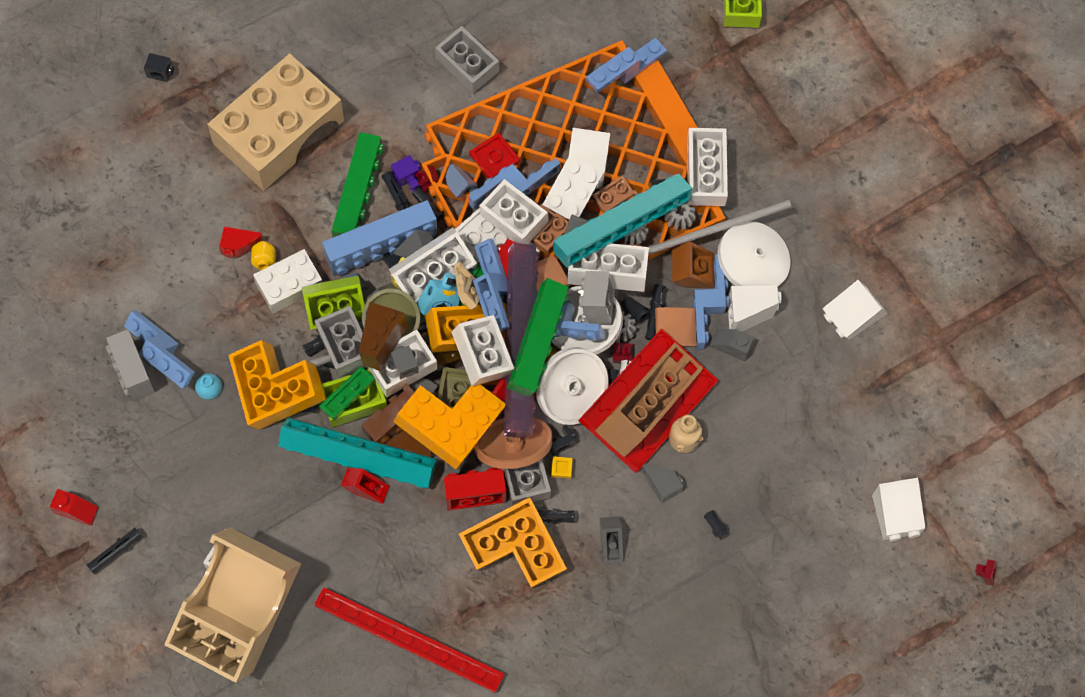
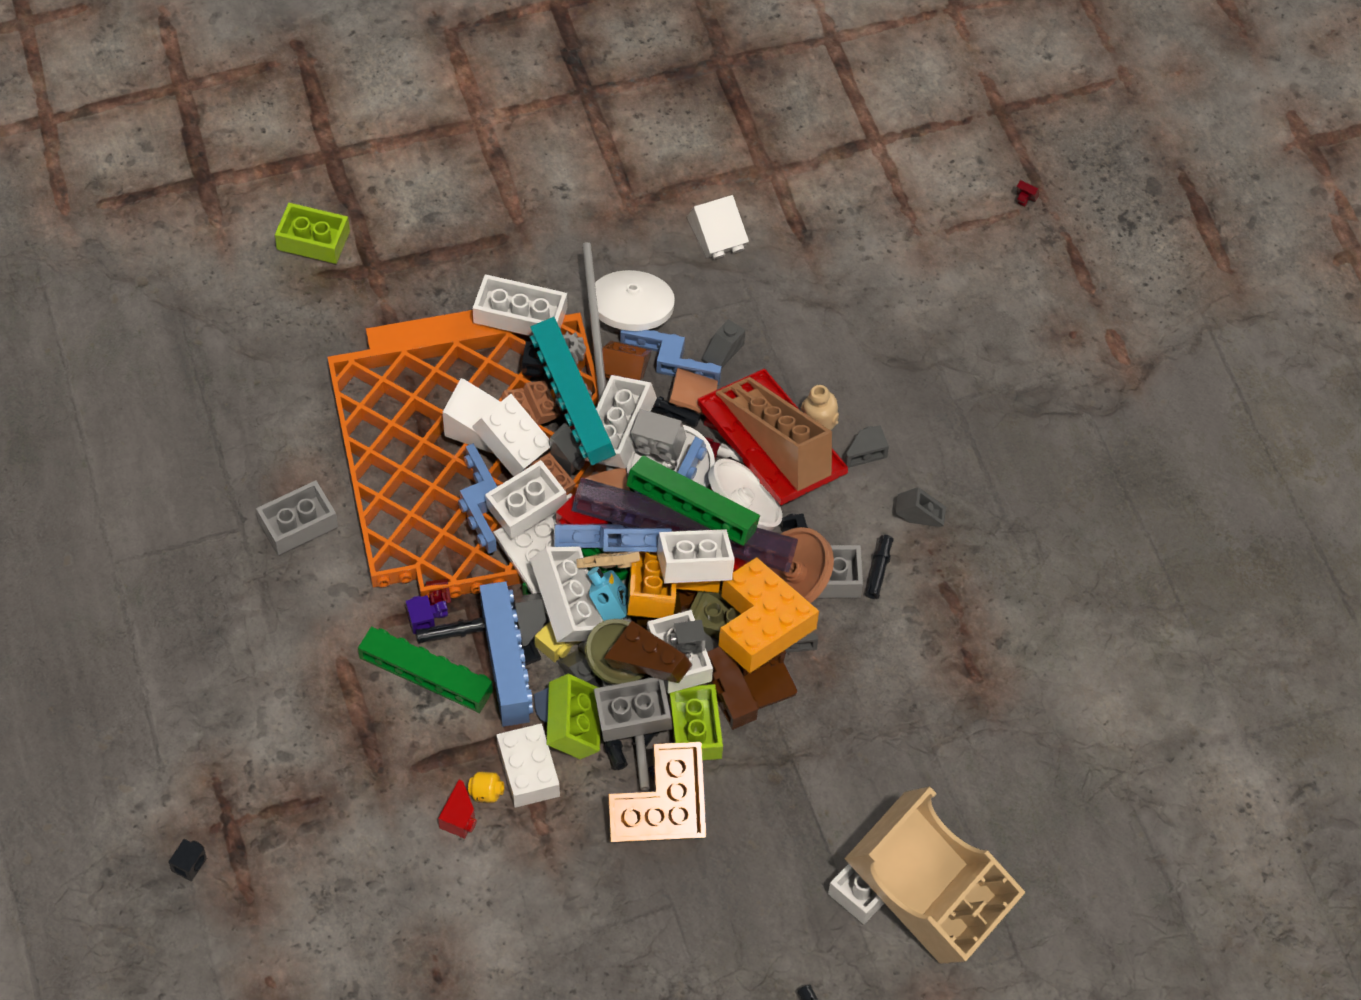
camera: 75 degrees left, 10 degrees down
(129, 365) = (593, 956): light grey brick -> none
(159, 349) = (579, 920): medium blue bracket -> none
(208, 386) = (635, 881): medium azure brick -> none
(273, 120) = (318, 732): tan piece -> none
(347, 393) = (696, 720): green tile -> none
(357, 453) = (764, 732): teal brick -> none
(364, 485) = (802, 736): red slope -> none
(409, 640) = (996, 725): red plate -> none
(421, 196) = (464, 604): black piece -> none
(459, 181) = (460, 554): sand blue brick -> none
(474, 489) = (837, 621): red brick -> none
(494, 155) = (437, 513): red tile -> none
(517, 532) = (902, 588): light orange brick -> none
(561, 467) = (830, 533): yellow plate -> none
(626, 65) = (369, 353): medium blue bracket -> none
(719, 528) = (929, 409): black animal -> none
(752, 305) = (692, 315): white slope -> none
(899, 509) = (947, 246): white slope -> none

